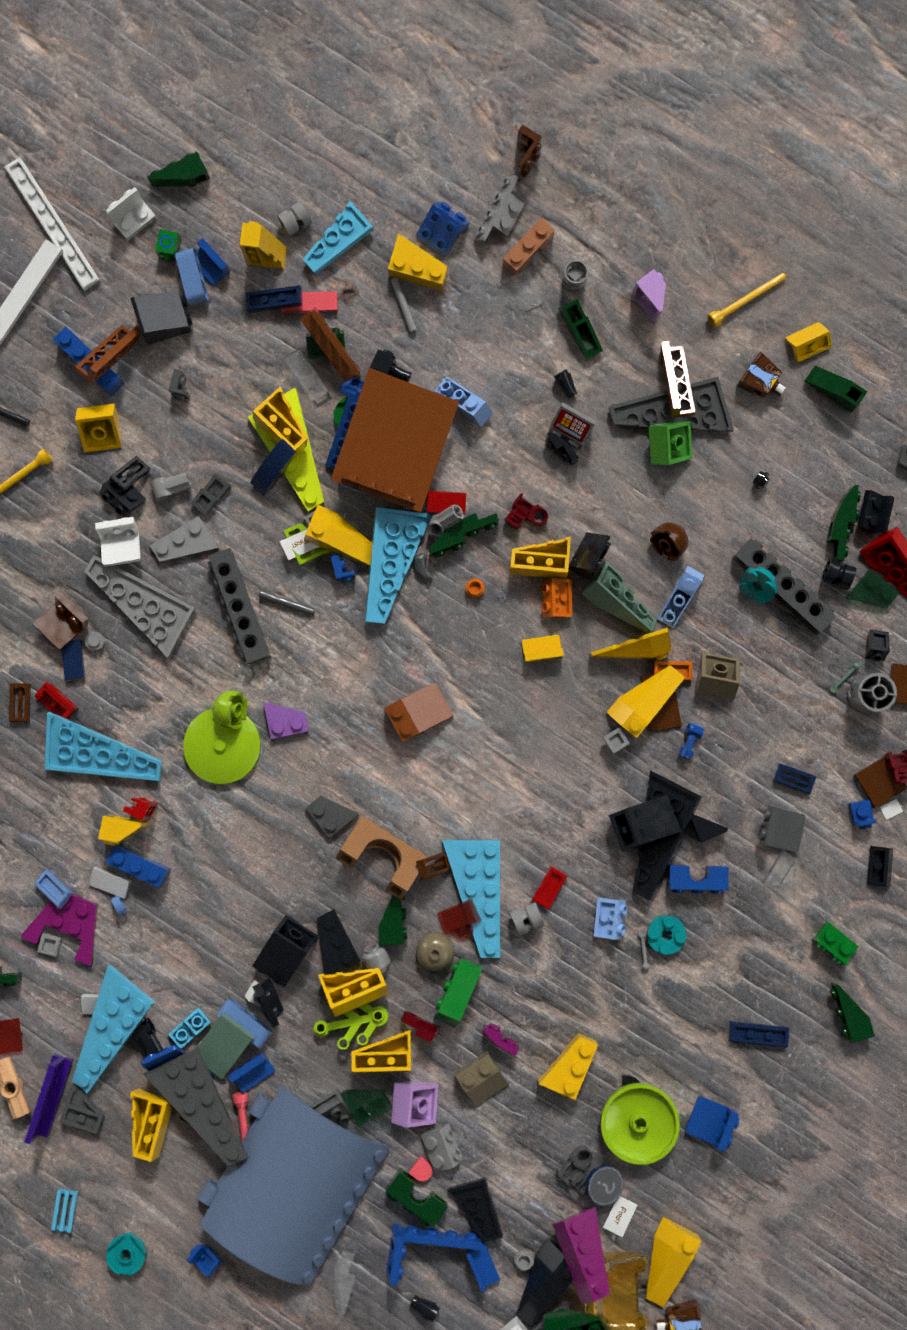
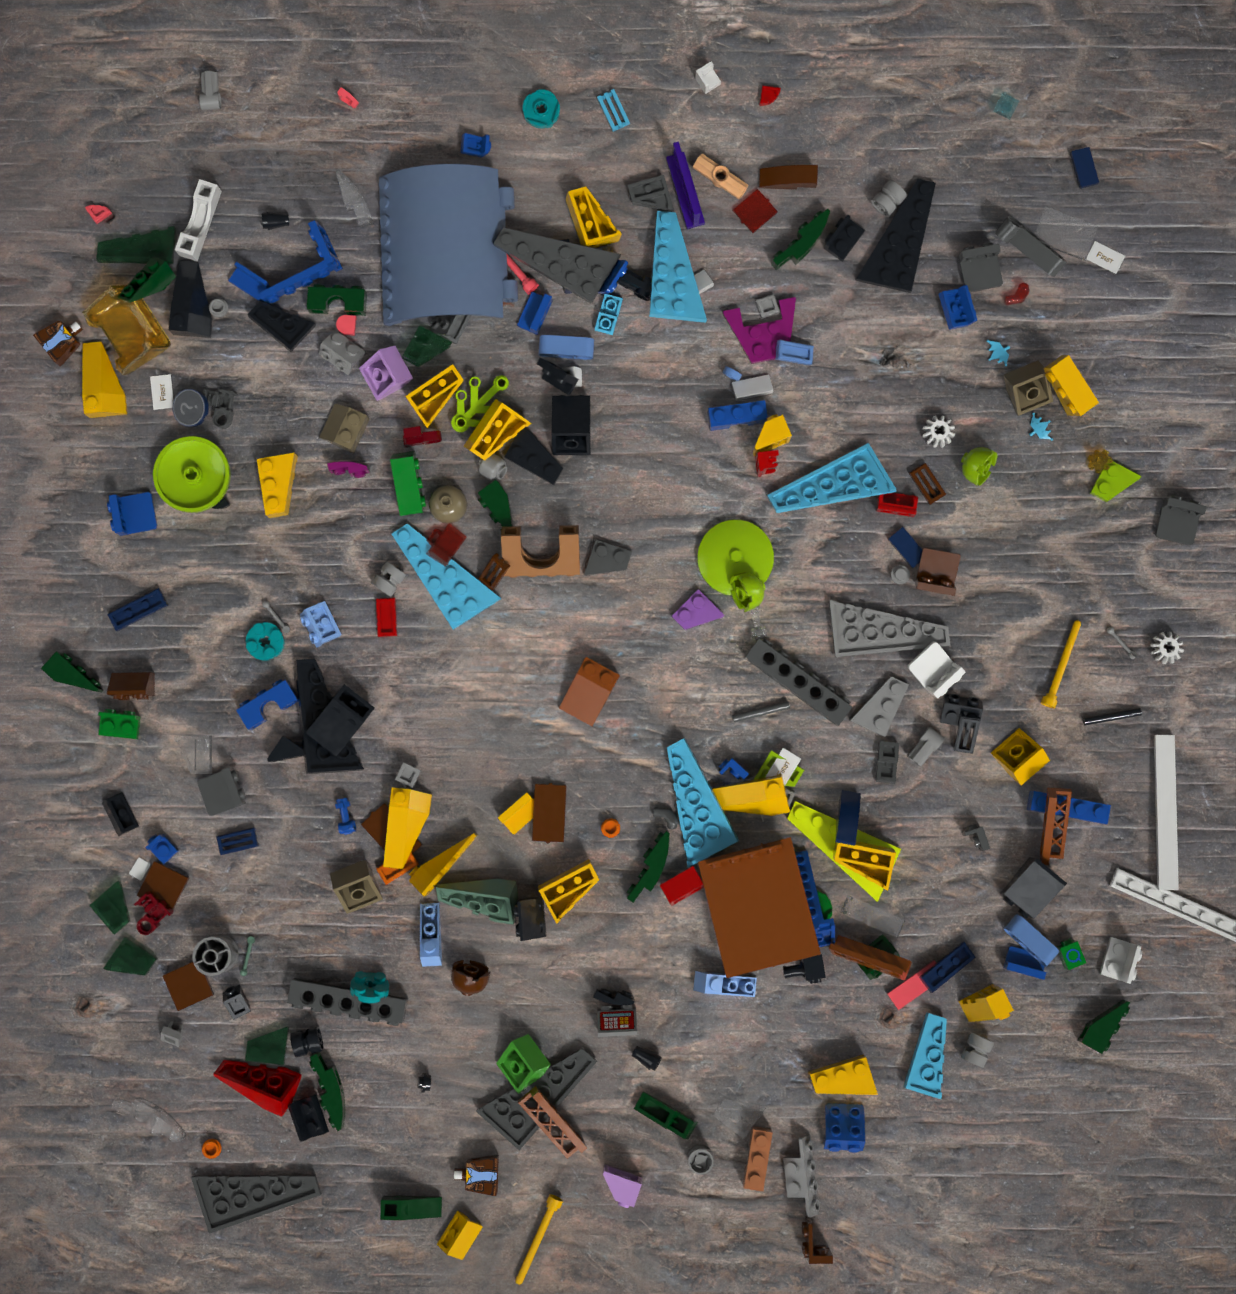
camera: 155 degrees right, 0 degrees up
(224, 1045) = (570, 319): sand green tile -> none
(403, 304) = (833, 1036): light grey bar -> none
(444, 520) = (674, 866): light grey piece -> none
(518, 633) = (549, 813): none -> reddish brown piece
(523, 509) = (613, 922): dark red piece -> none
(557, 598) = (535, 864): orange bracket -> none
(584, 1254) = (173, 343): magenta wedge -> none
(808, 973) = (132, 684): none -> reddish brown slope

